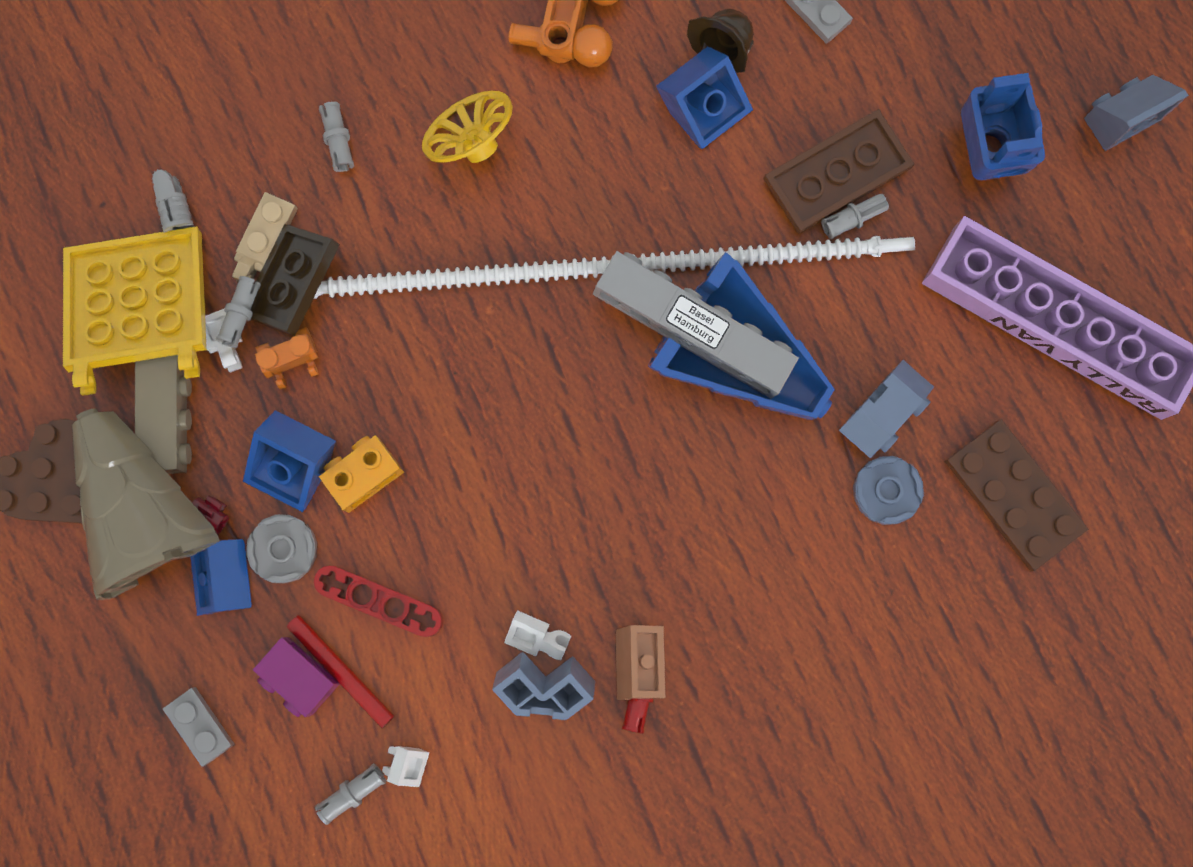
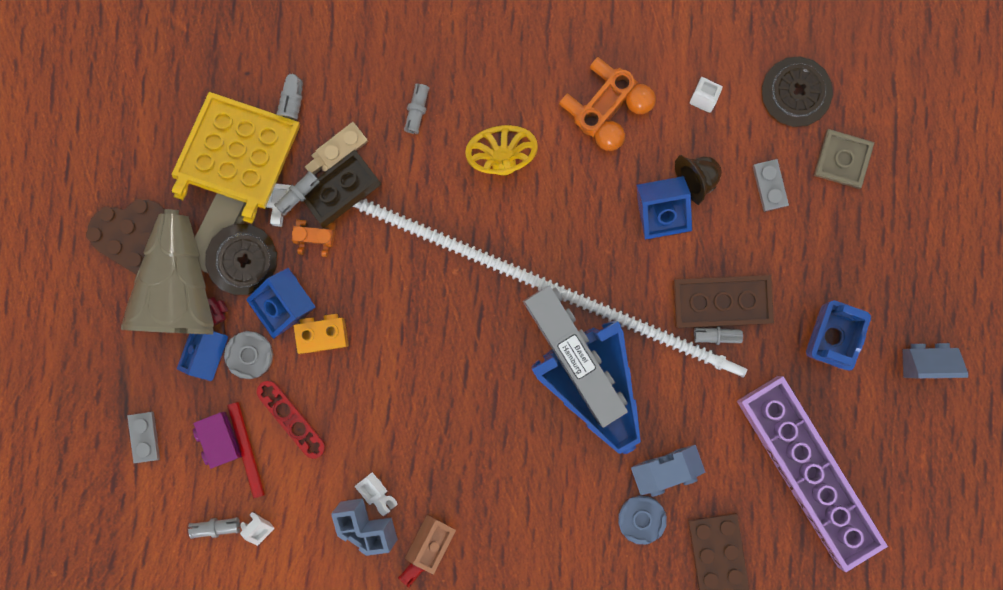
camera: 30 degrees right, 5 degrees up
(196, 453) = (233, 243): none -> dark brown piece

